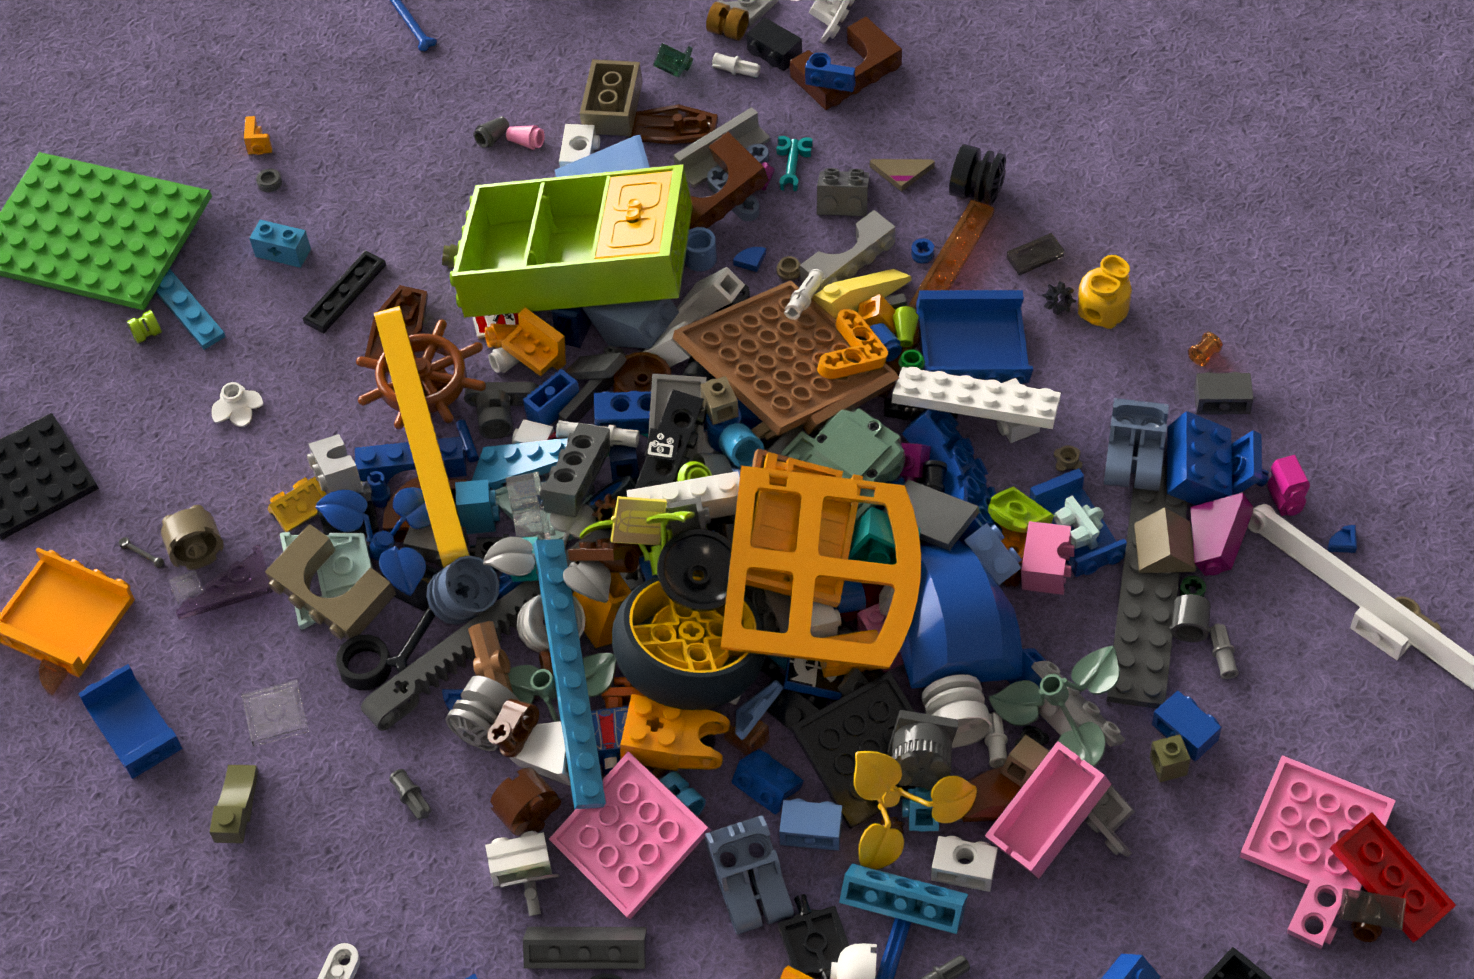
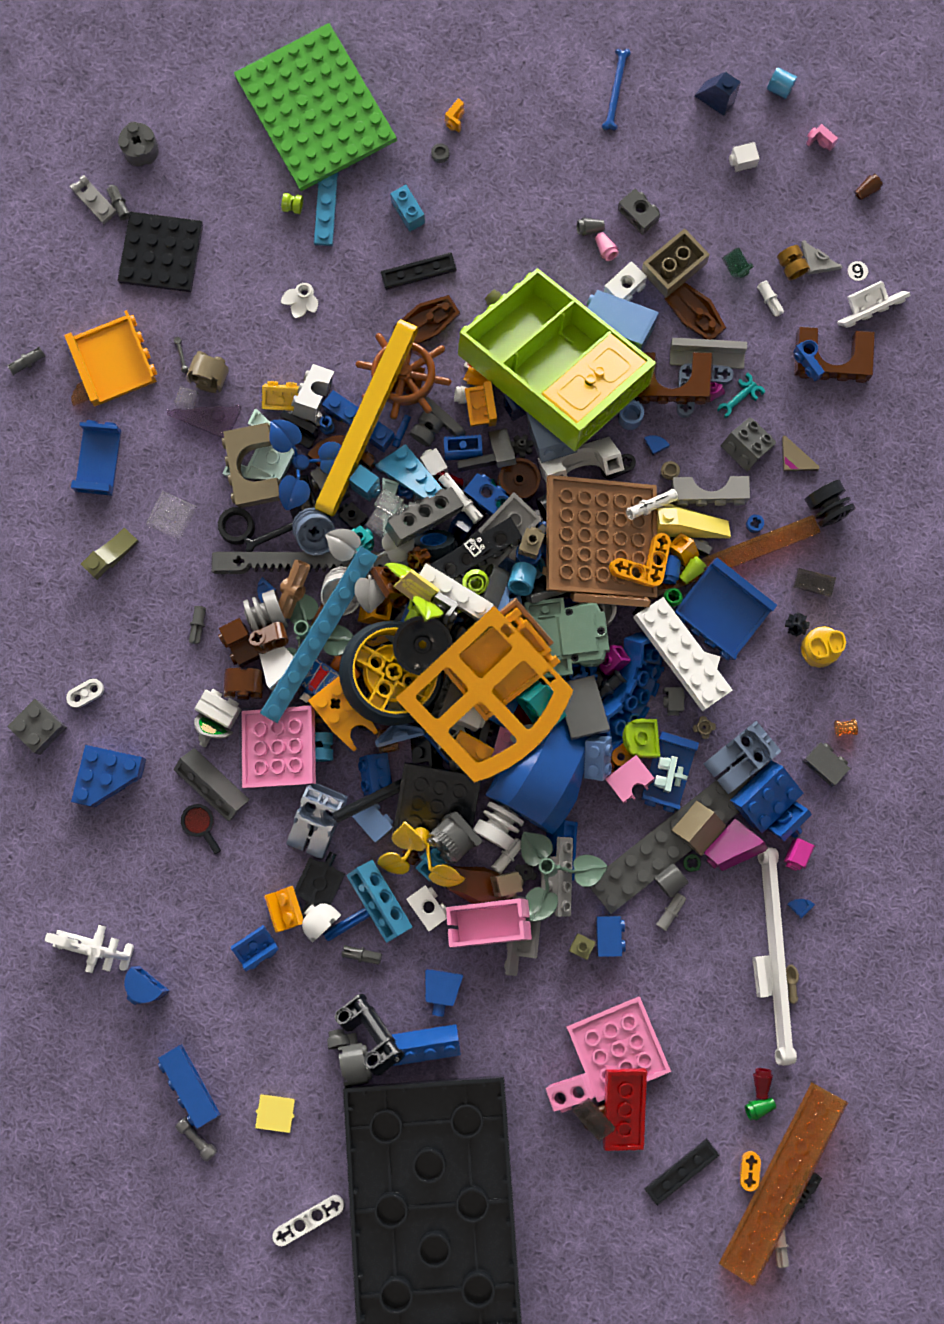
camera: 40 degrees right, 25 degrees up
(475, 767) = (237, 639): none -> reddish brown brick
(529, 85) = (640, 221): none -> dark grey brick
(773, 44) = (805, 303): black brick -> none
(788, 797) = (367, 801): none -> black axle
(1011, 456) = (674, 700): none -> dark grey brick
(1066, 932) = (441, 989): none -> blue torso

